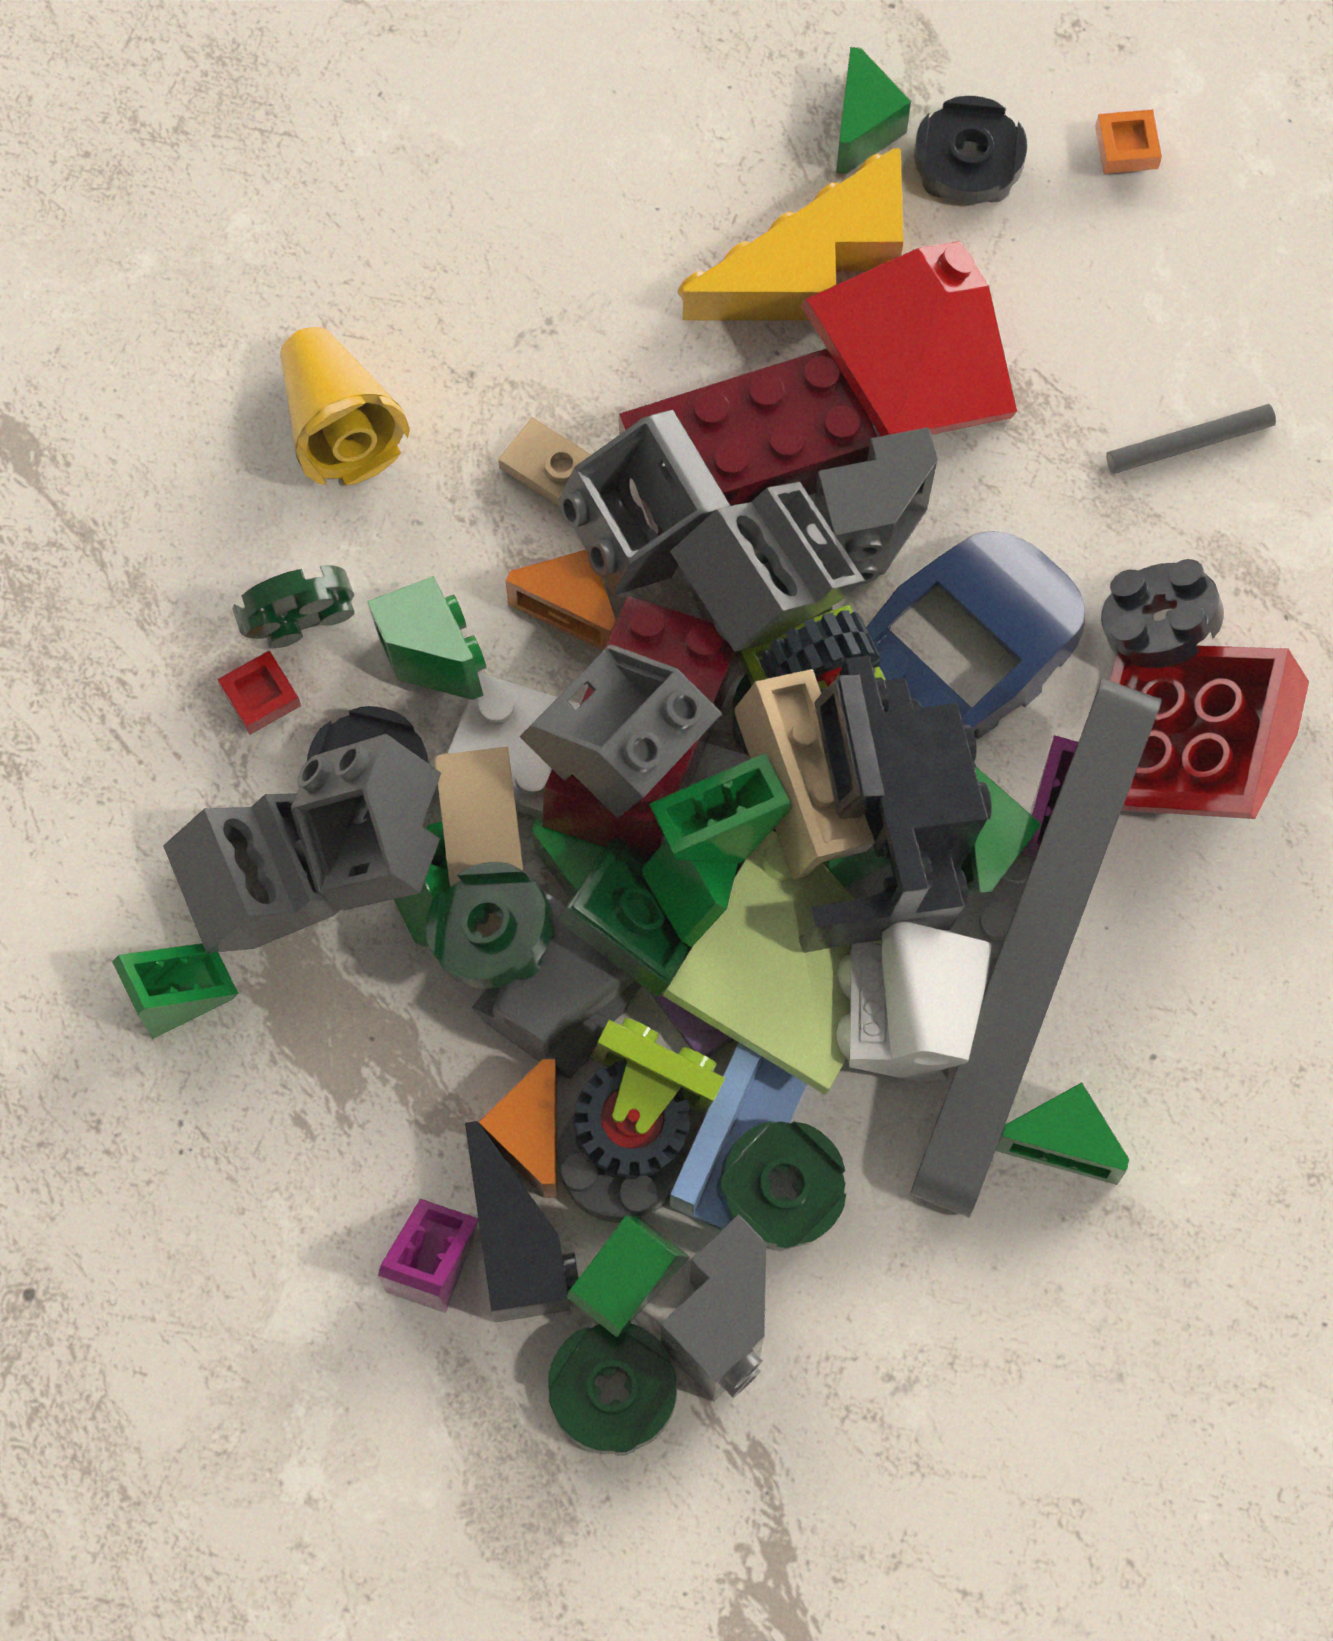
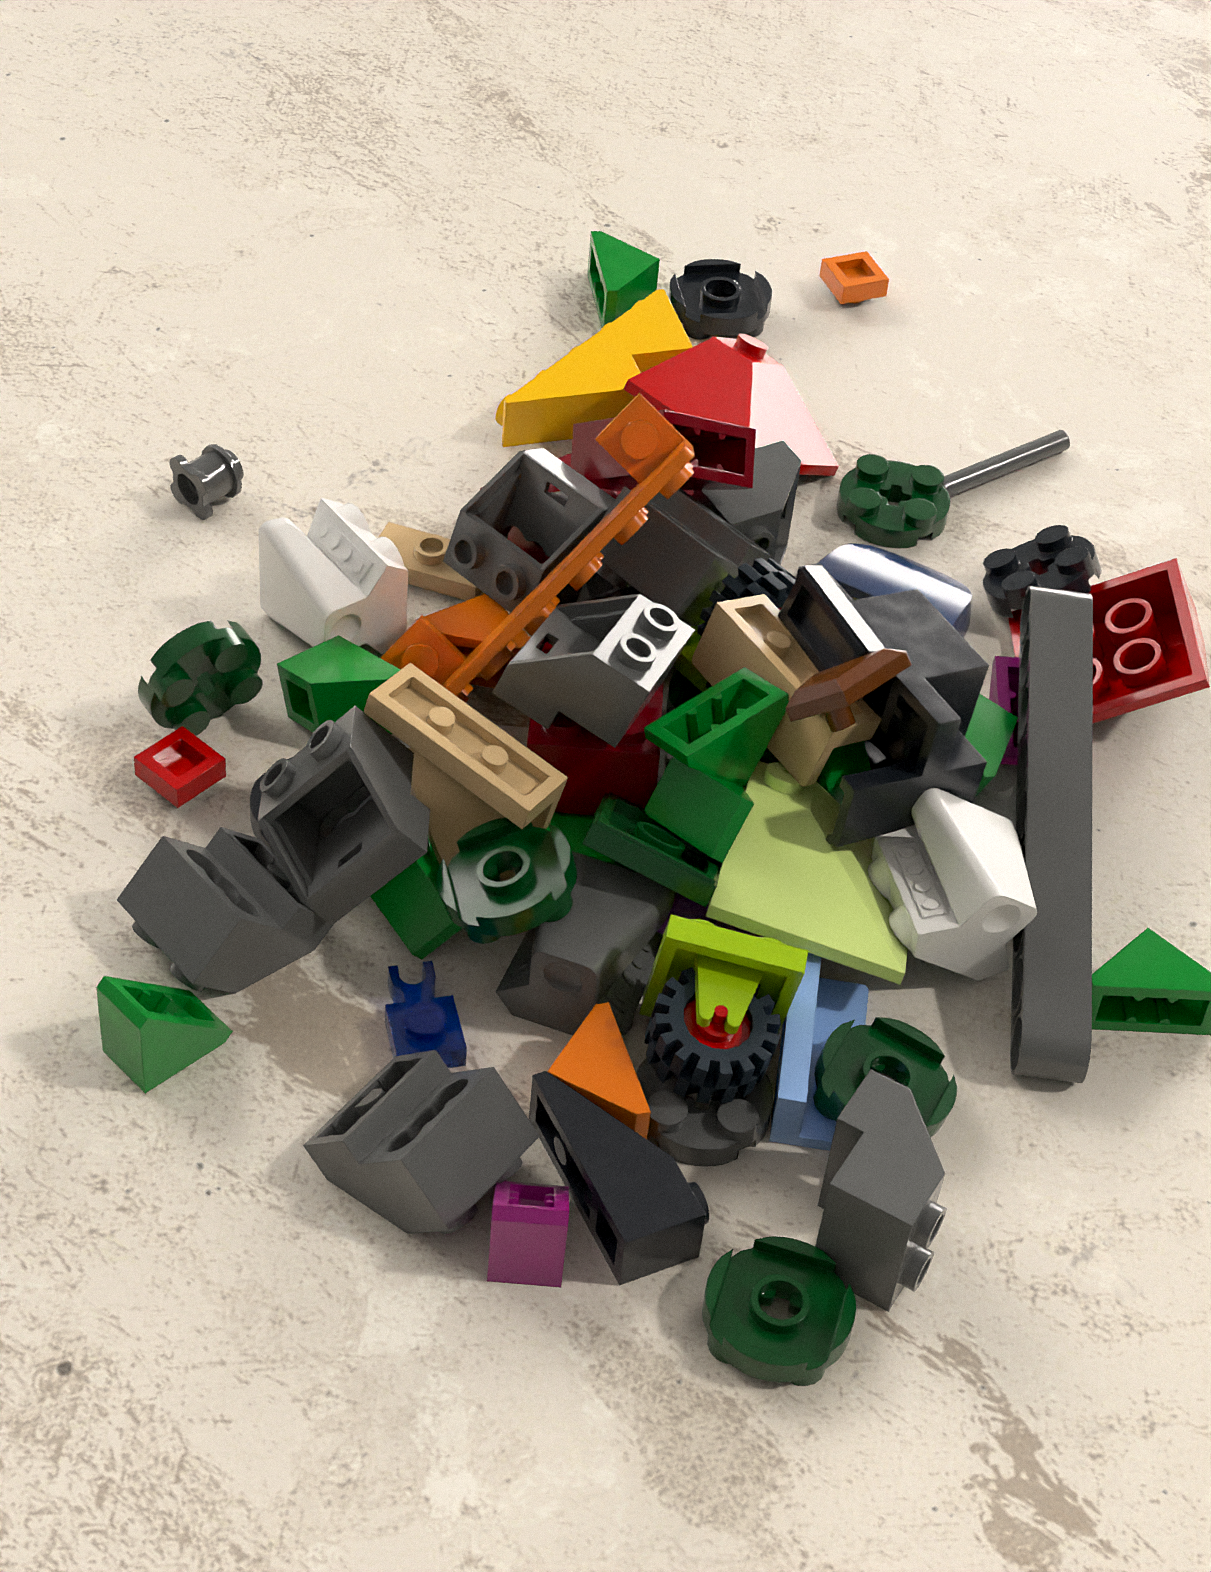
camera: 20 degrees left, 25 degrees down
(338, 411) = (199, 532): yellow cone -> none
(370, 329) = (206, 479): none -> dark grey brick
(383, 1186) = (451, 1163): none -> dark grey piece
(401, 1028) = (422, 1022): none -> clear blue plate
(445, 510) = (333, 578): none -> white piece
(479, 791) = (467, 747): none -> tan panel
(536, 648) = (659, 463): none -> orange bracket
(626, 1274) = (762, 1174): green slope -> none
(784, 449) = (720, 462): none -> dark red slope
(830, 826) = (844, 684): none -> reddish brown piece
(1059, 442) = (916, 489): none -> dark green plate

